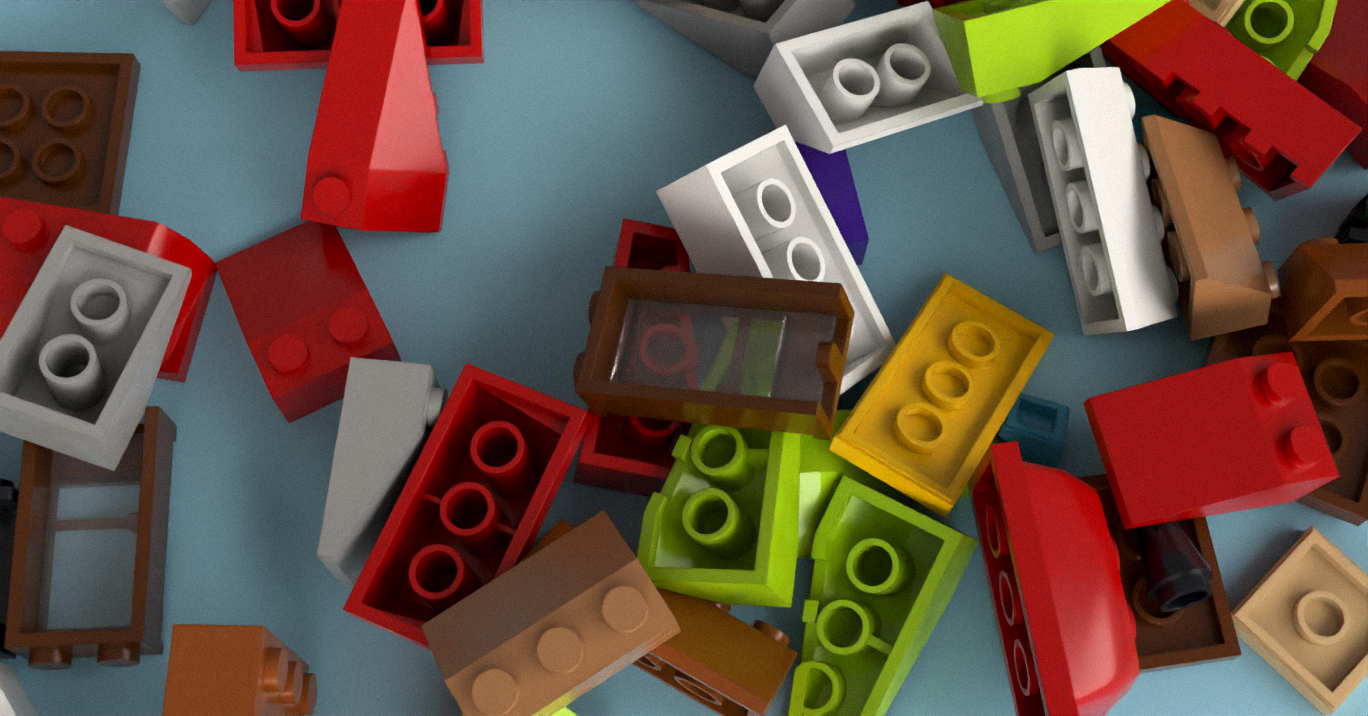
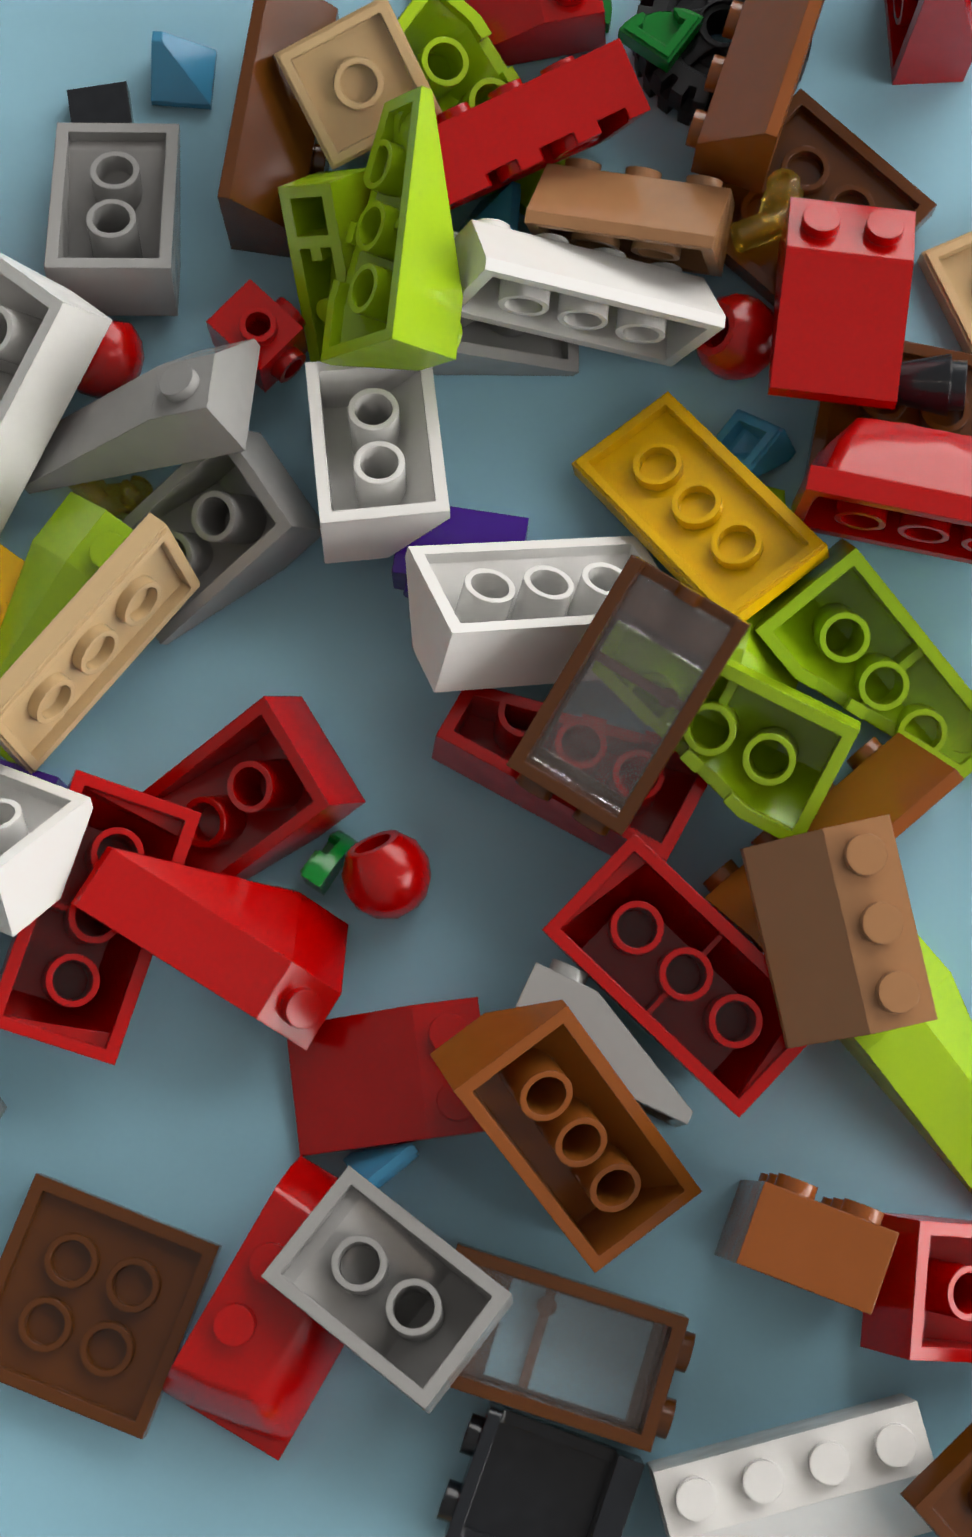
camera: 70 degrees left, 10 degrees up
(219, 326) = (383, 1163): none -> dark azure slope
(276, 445) = (567, 1126): none -> dark orange slope
(483, 195) = (326, 864): none -> green tile
(488, 239) = (386, 874): none -> red piece
(528, 110) = (261, 788): none -> red slope
(1132, 359) = (744, 343): none -> red piece
(1308, 353) = (769, 222): none -> clear yellow arm

